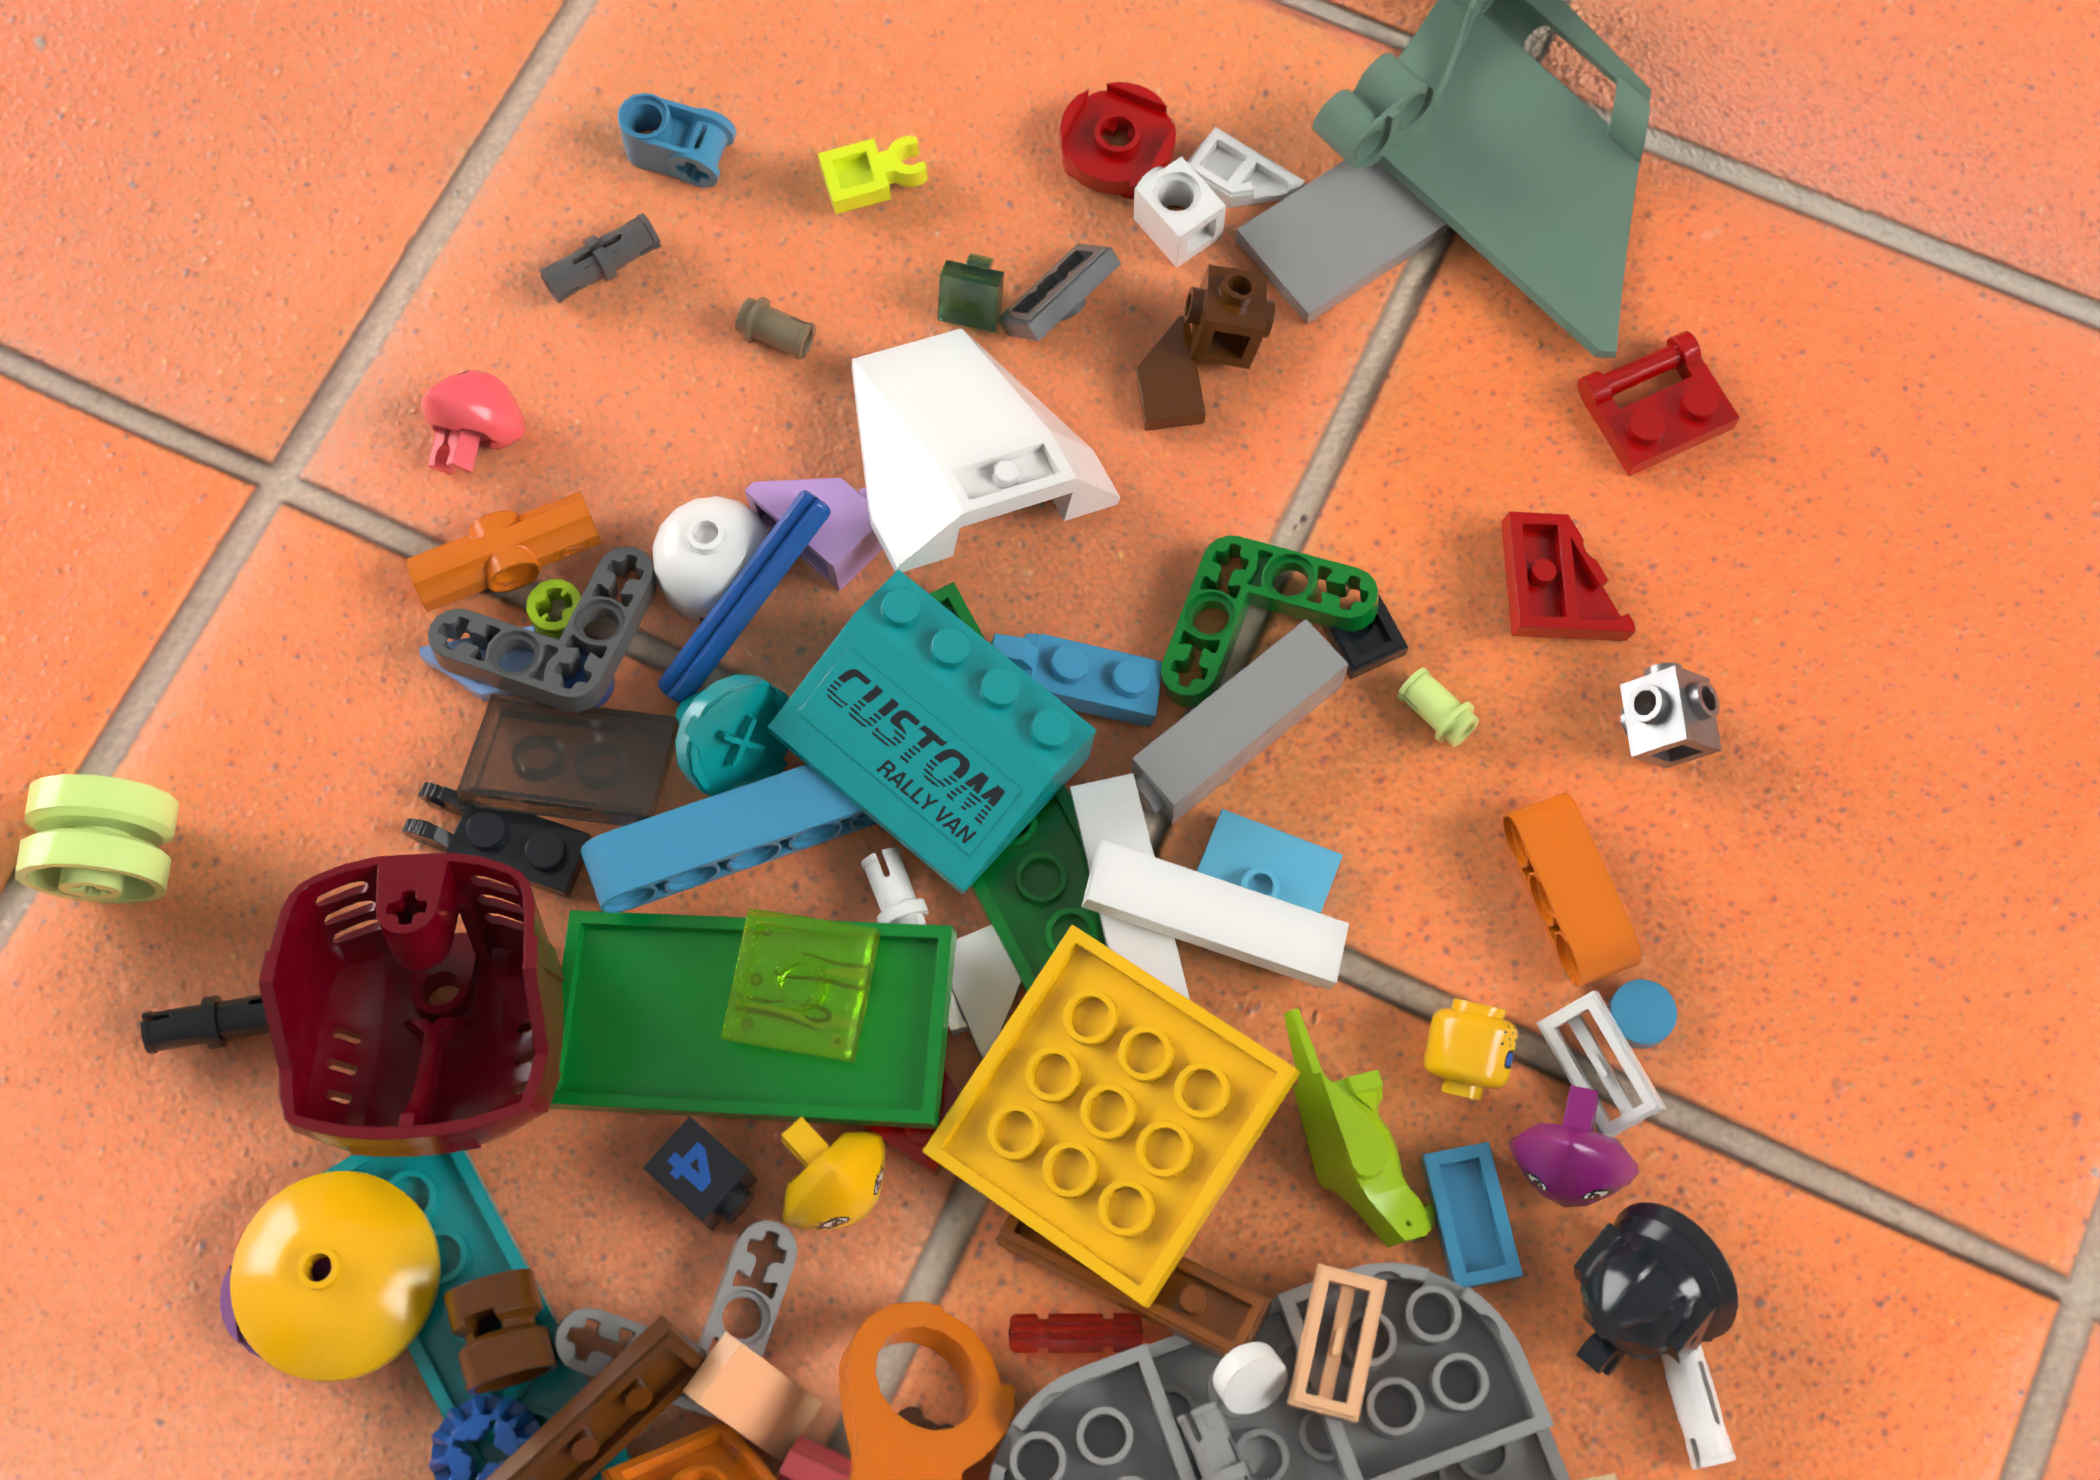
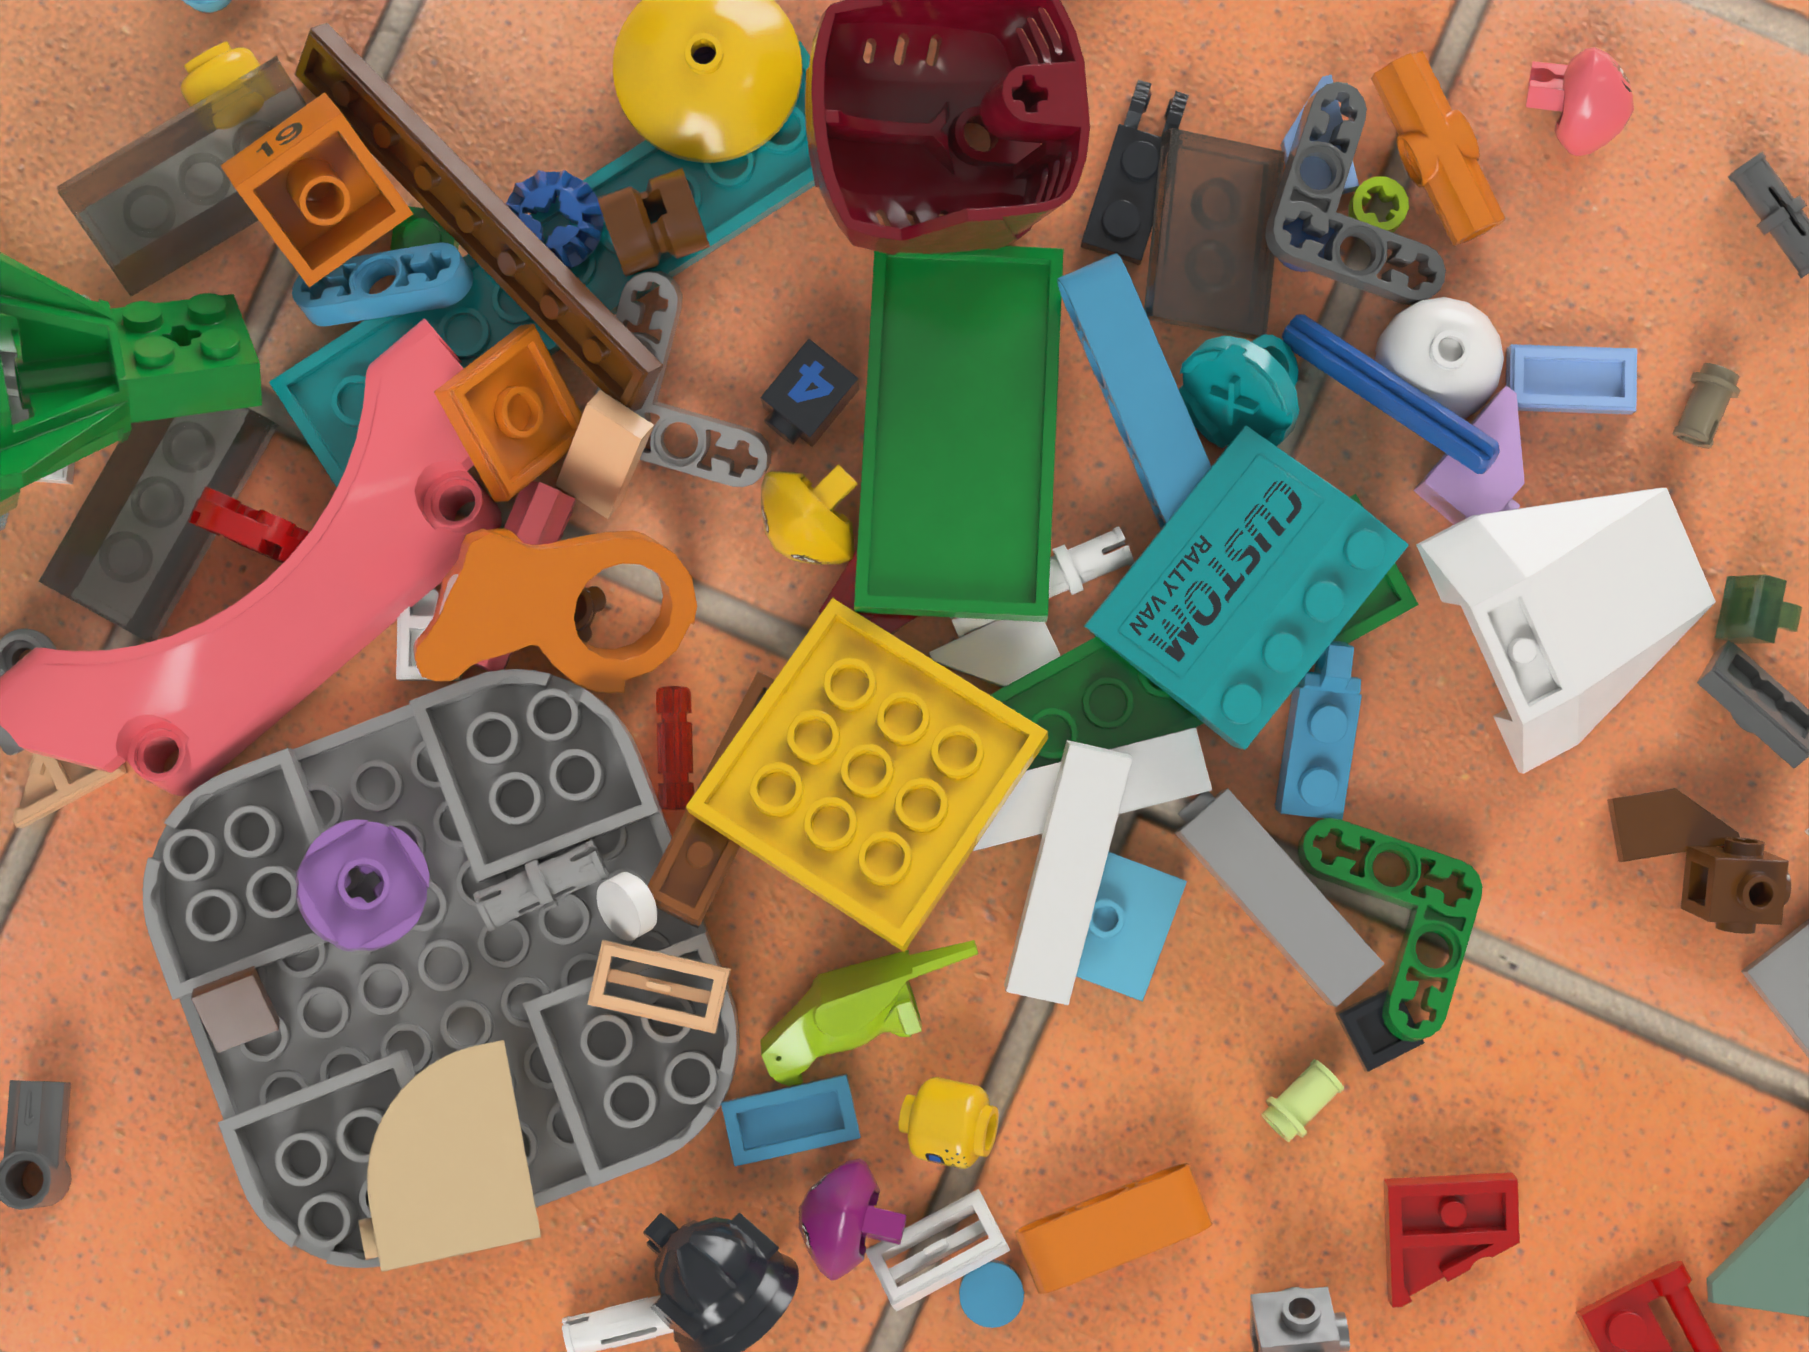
camera: 90 degrees right, 15 degrees up
(740, 440) = (1573, 378): none -> light blue tile
(801, 985) = (987, 474): clear neon green tile -> none

